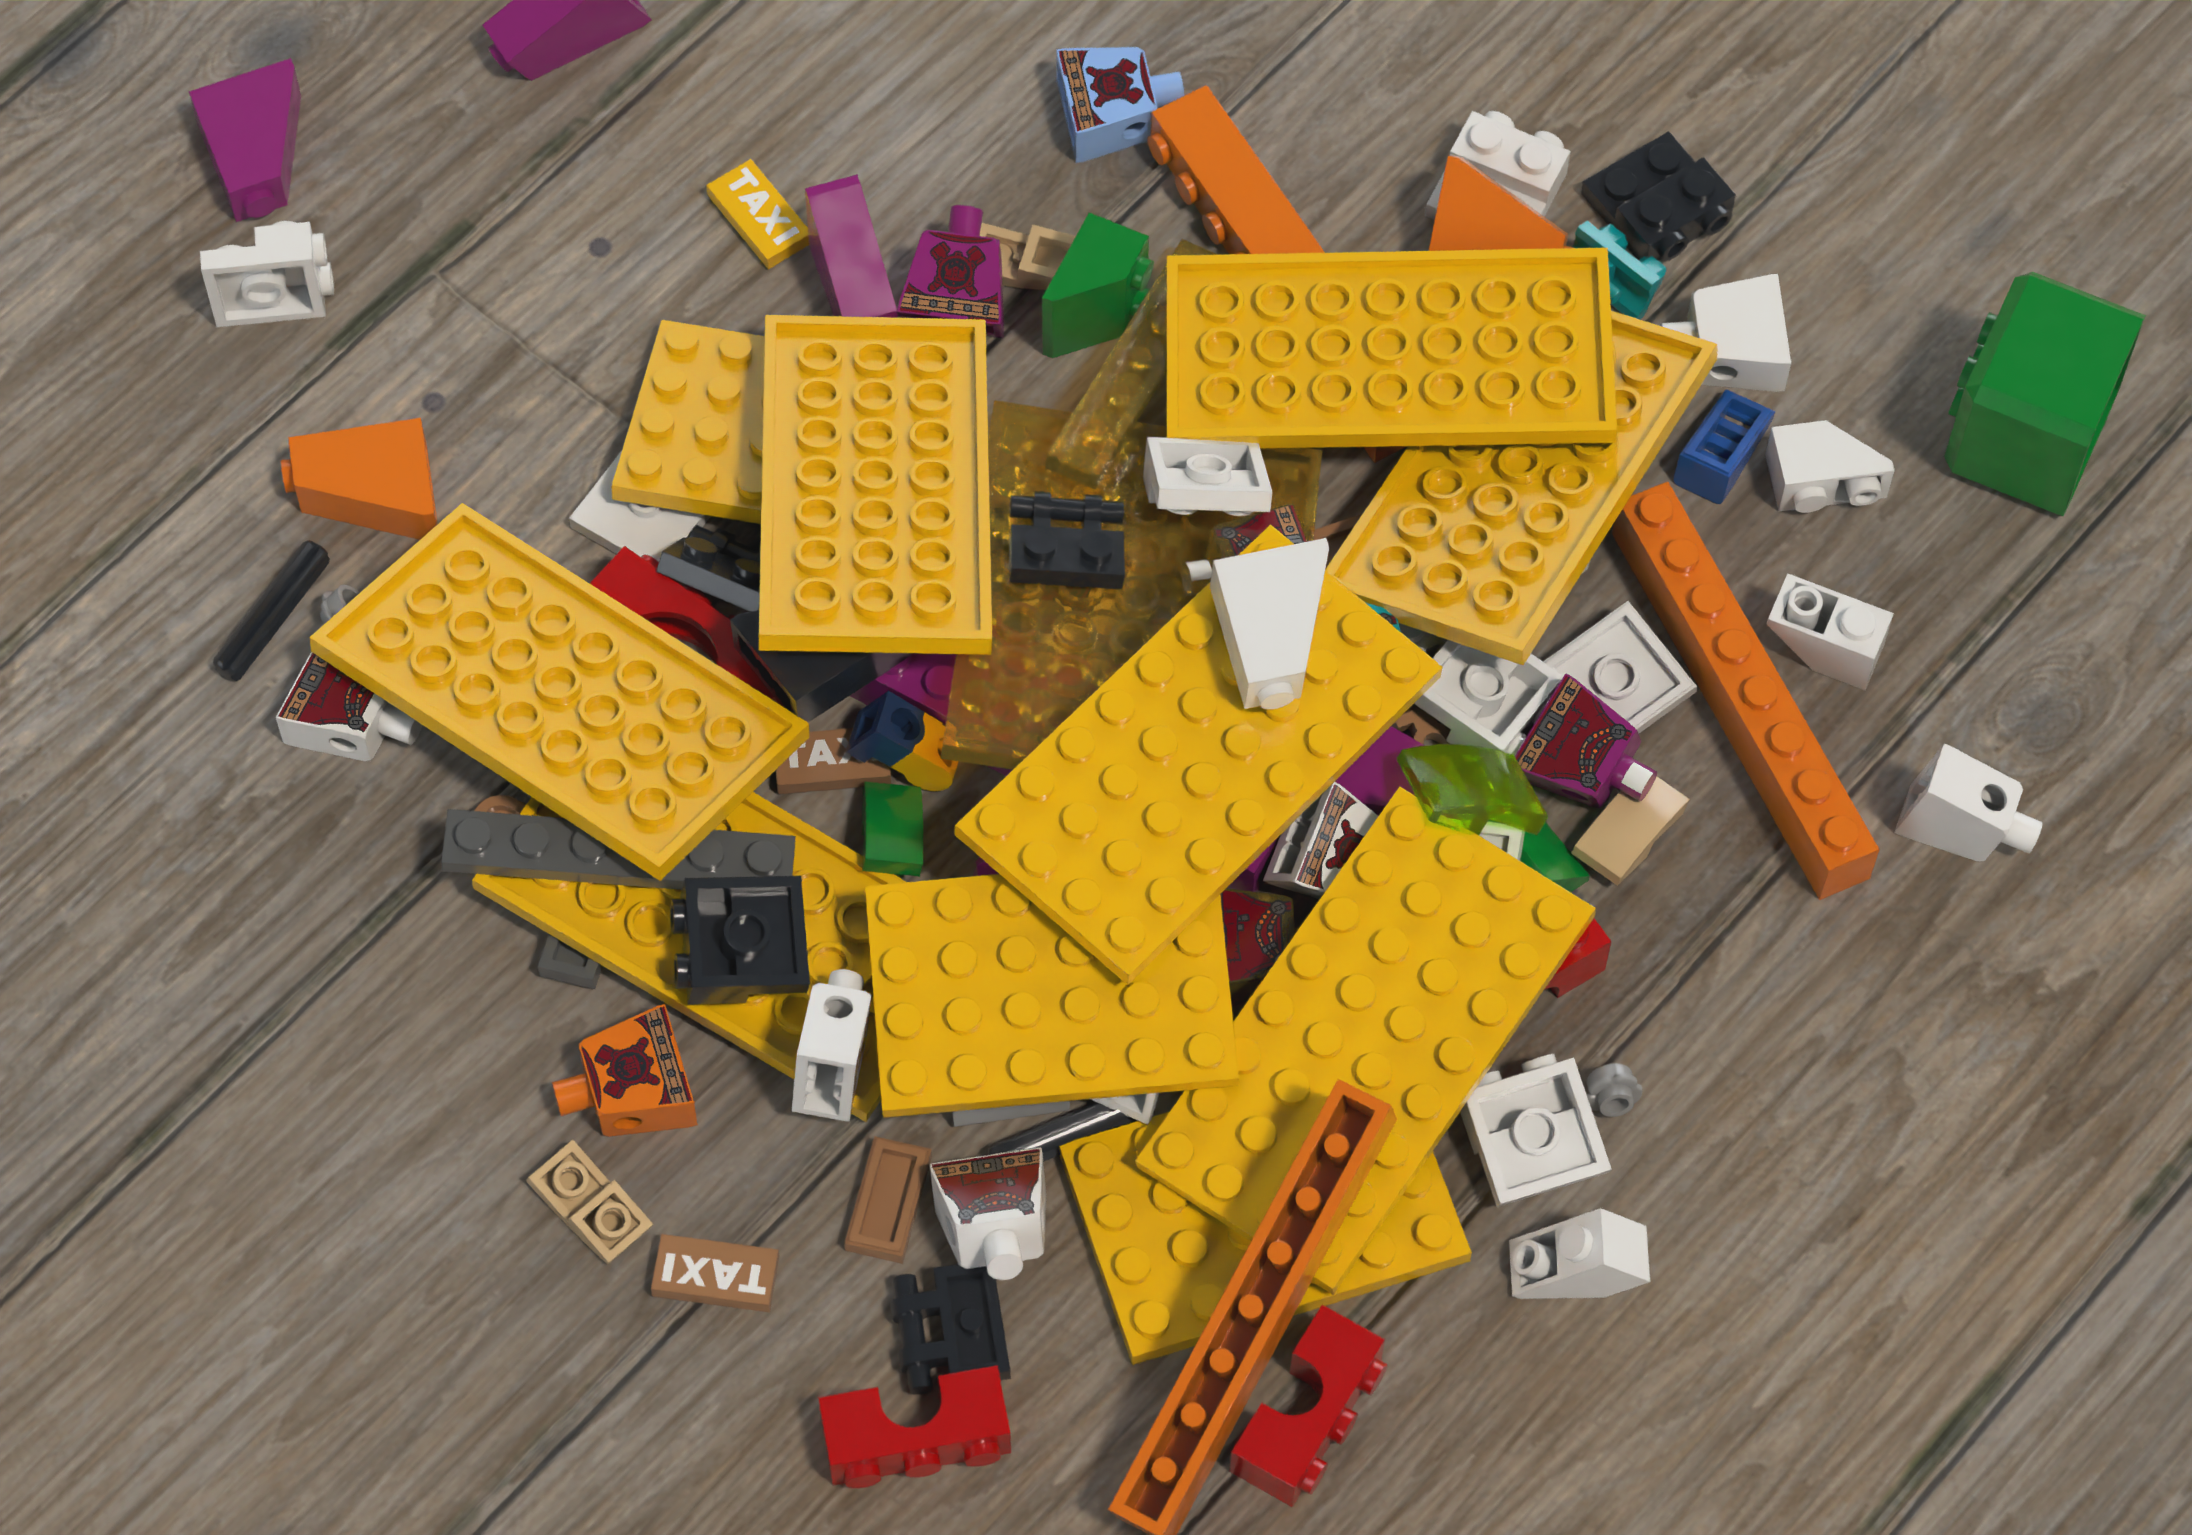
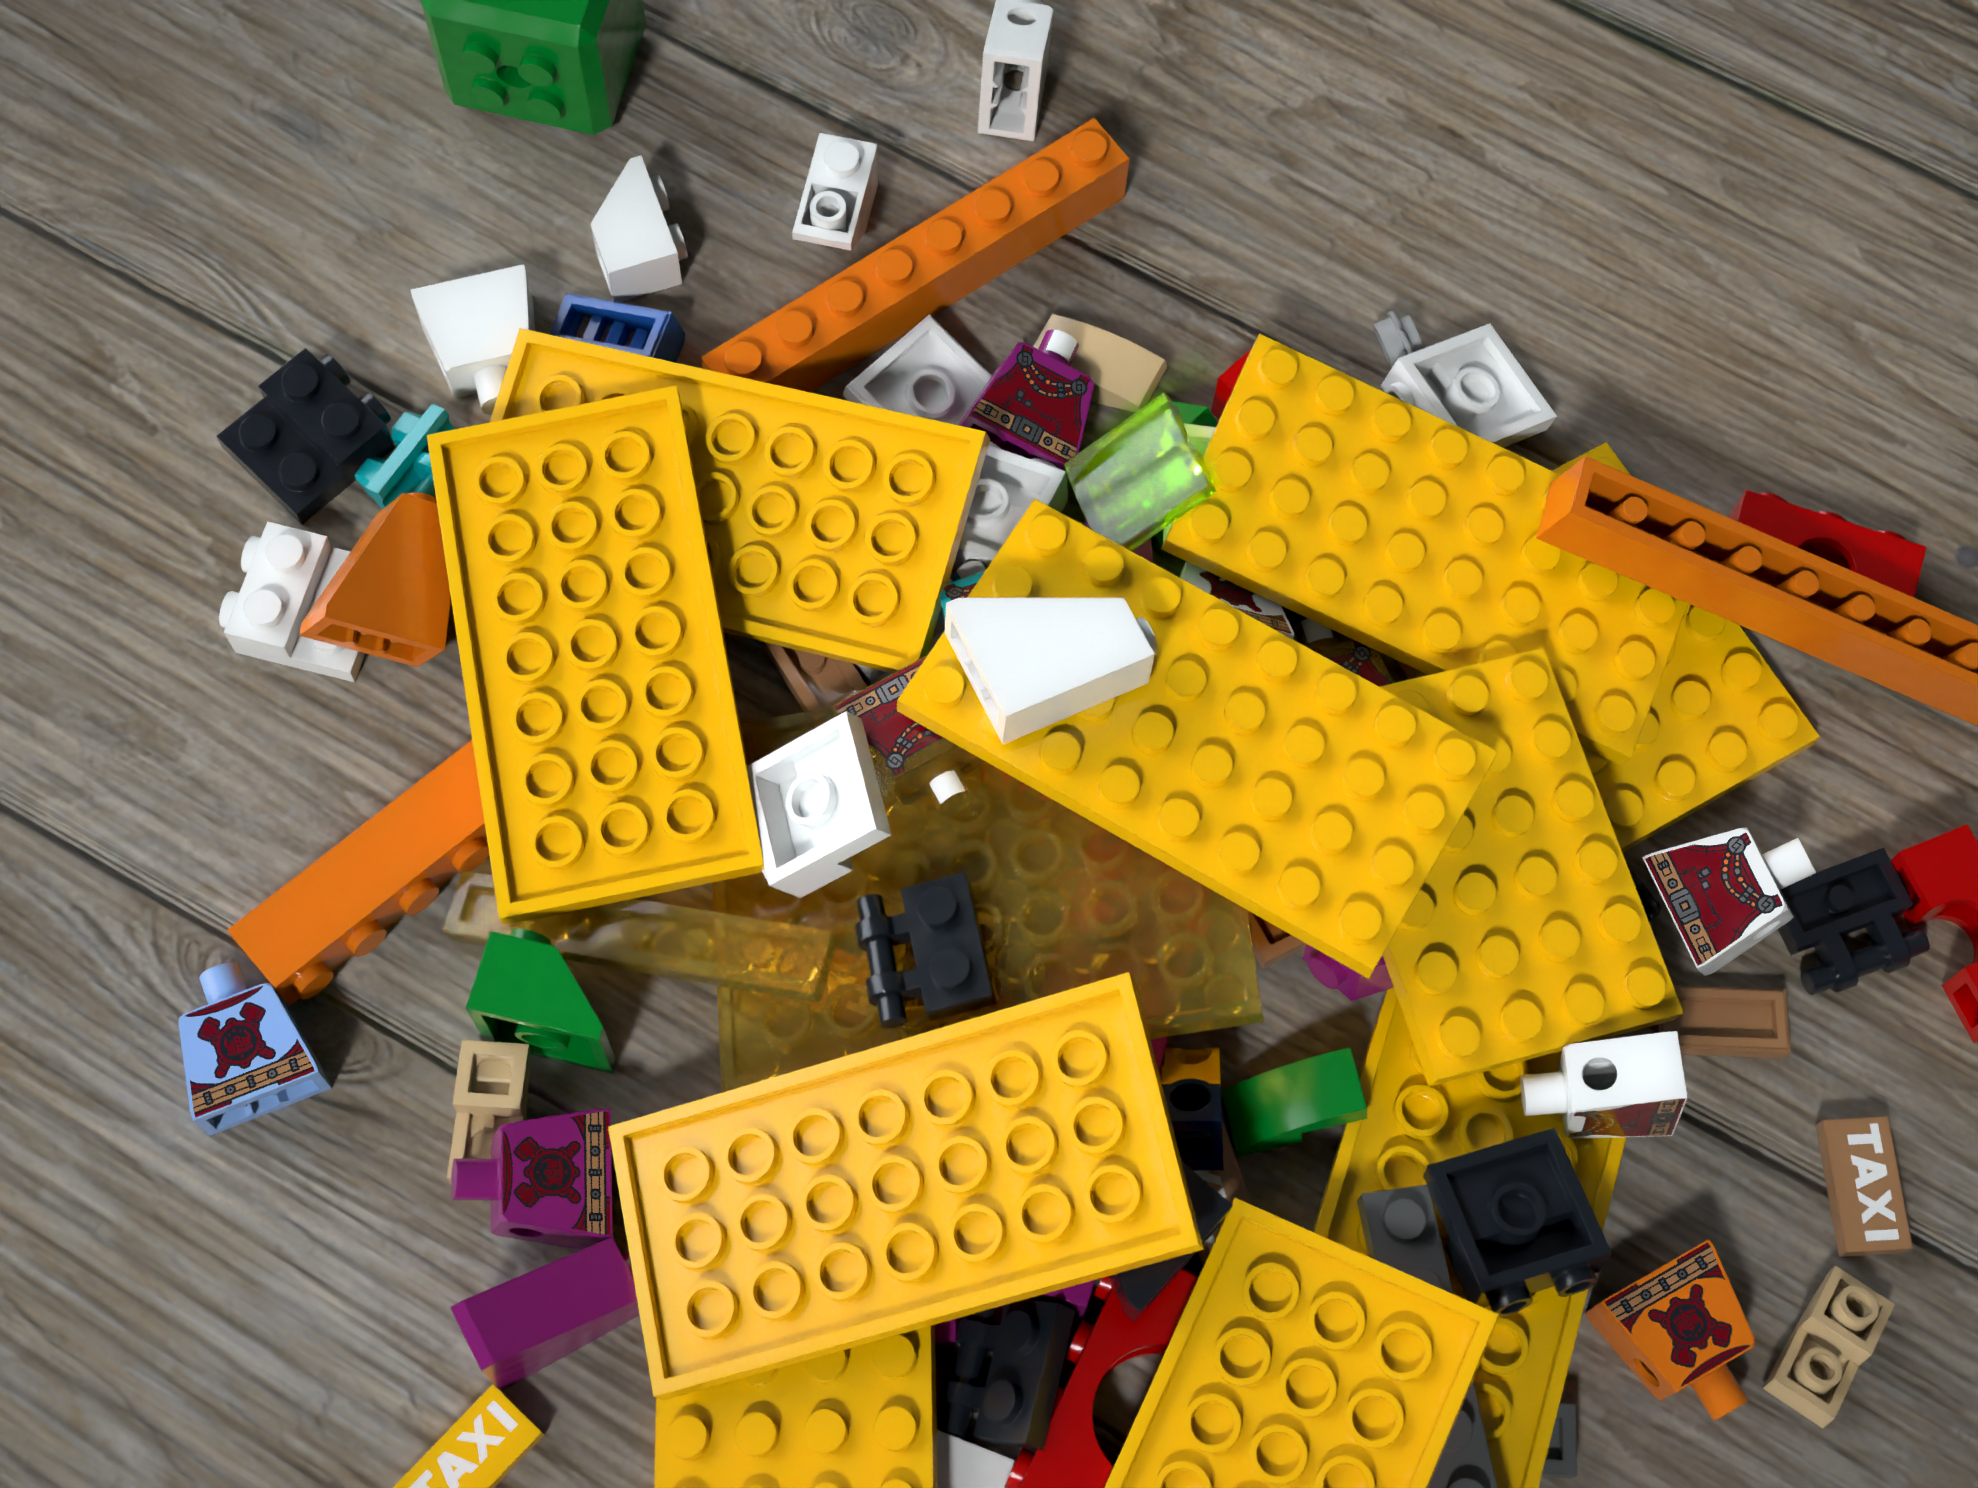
camera: 105 degrees left, 5 degrees up
(1580, 1258) = (1587, 343): white slope -> none

